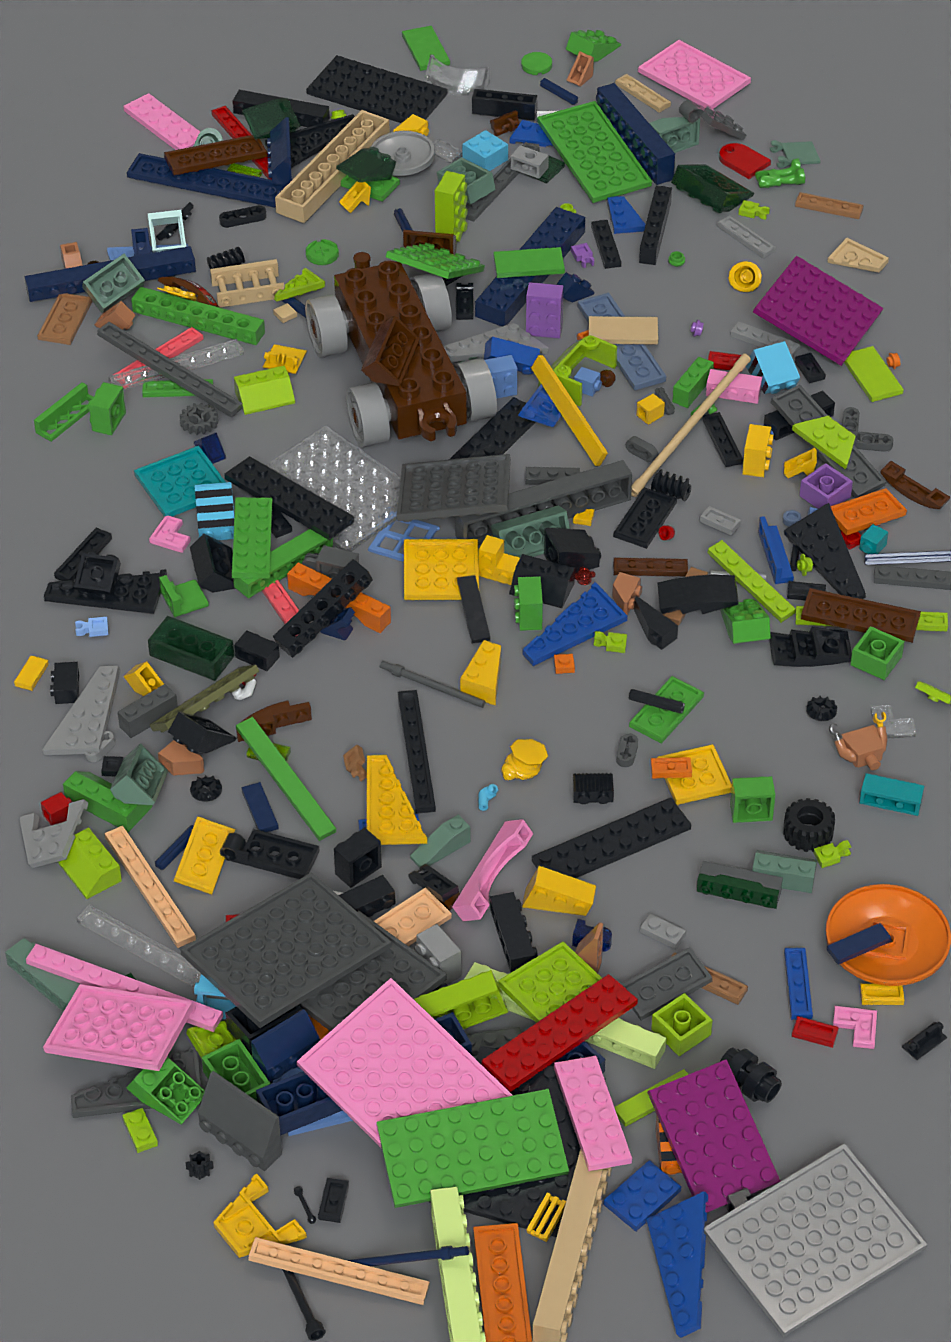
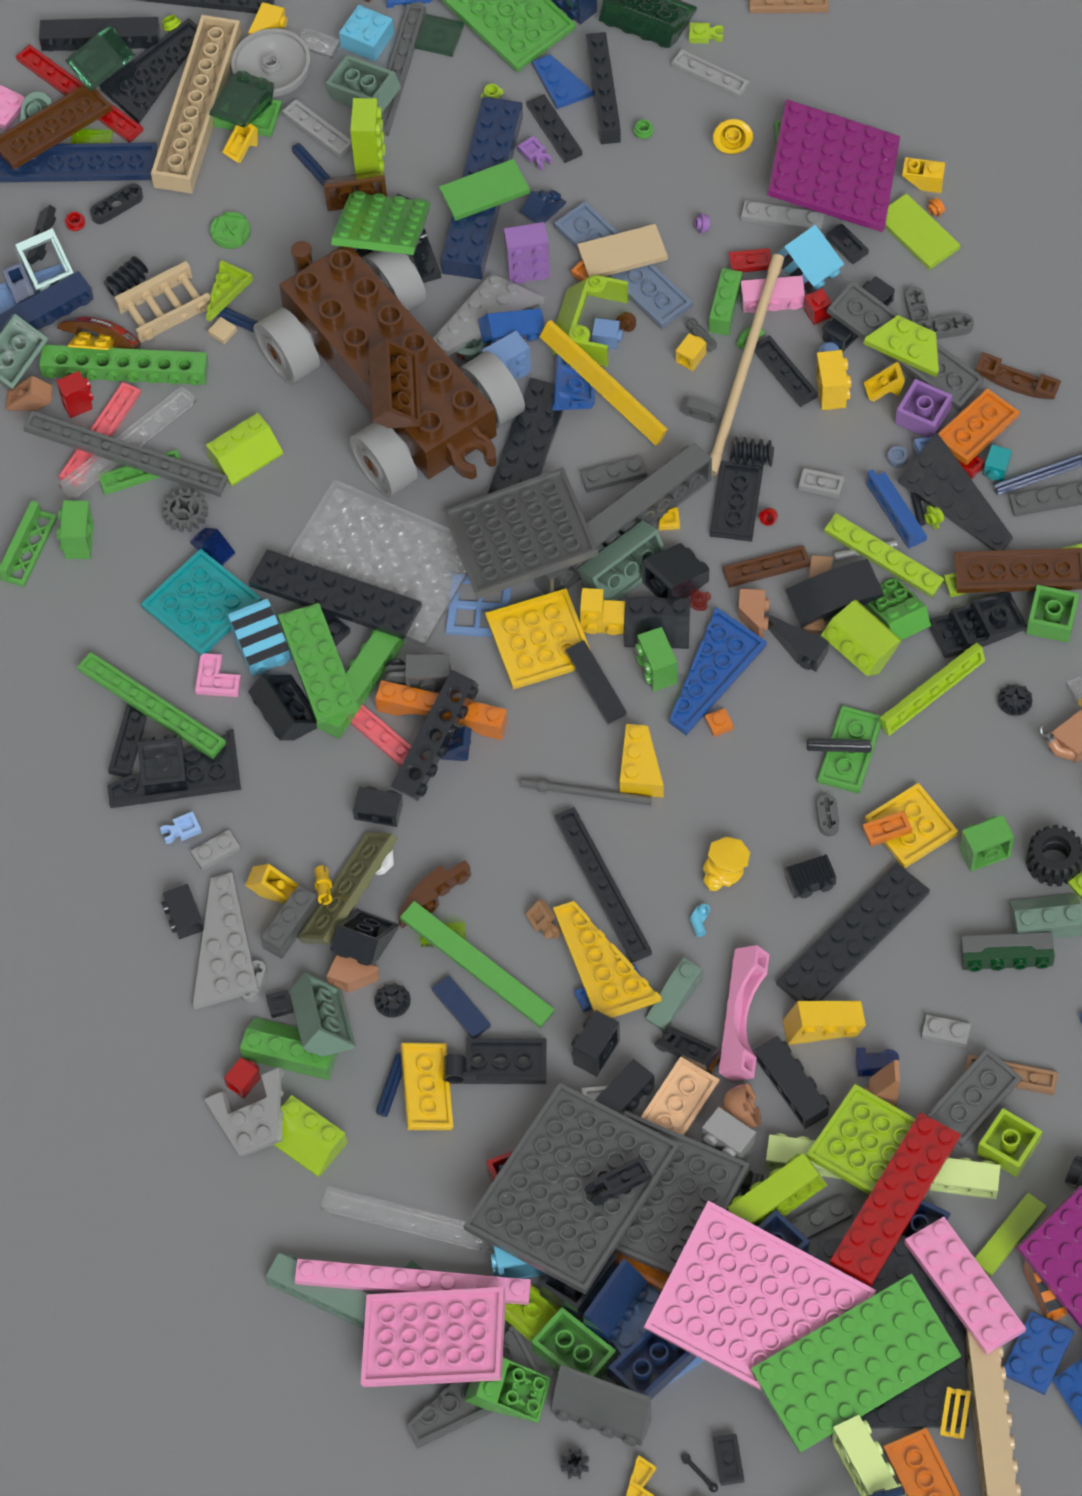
camera: 15 degrees left, 15 degrees up
(31, 673) = (136, 908): yellow tile -> none
(109, 537) = (151, 705): none -> bright green tile
(113, 649) = (215, 850): none -> light grey plate
(140, 1130) = (493, 1440): lime plate -> none
(148, 321) = (75, 394): none -> red brick
(150, 887) = (383, 1143): light nougat plate -> none
(182, 597) = (266, 758): bright green bracket -> none
(186, 692) = (323, 885): none -> yellow pin
(191, 648) = (305, 826): clear green brick -> none
(205, 219) = (75, 217): none -> red plate
(280, 153) = (131, 106): dark blue slope -> none
(283, 356) = (247, 396): yellow hinge -> none
(324, 950) = (619, 1180): none -> black hinge
(418, 201) = (317, 128): none -> light grey plate
(463, 934) = (741, 1105): none -> nougat cylinder
(529, 161) = (425, 36): light grey brick -> none
(613, 642) = (762, 677): lime plate -> none
(706, 630) = (861, 638): none -> lime slope
(753, 682) = (932, 689): none -> lime plate
(764, 401) = (816, 306): none -> red brick
(800, 590) = (944, 549): black tile -> none
(858, 256) = (847, 69): tan wing -> none
(892, 335) = (924, 174): none -> yellow slope

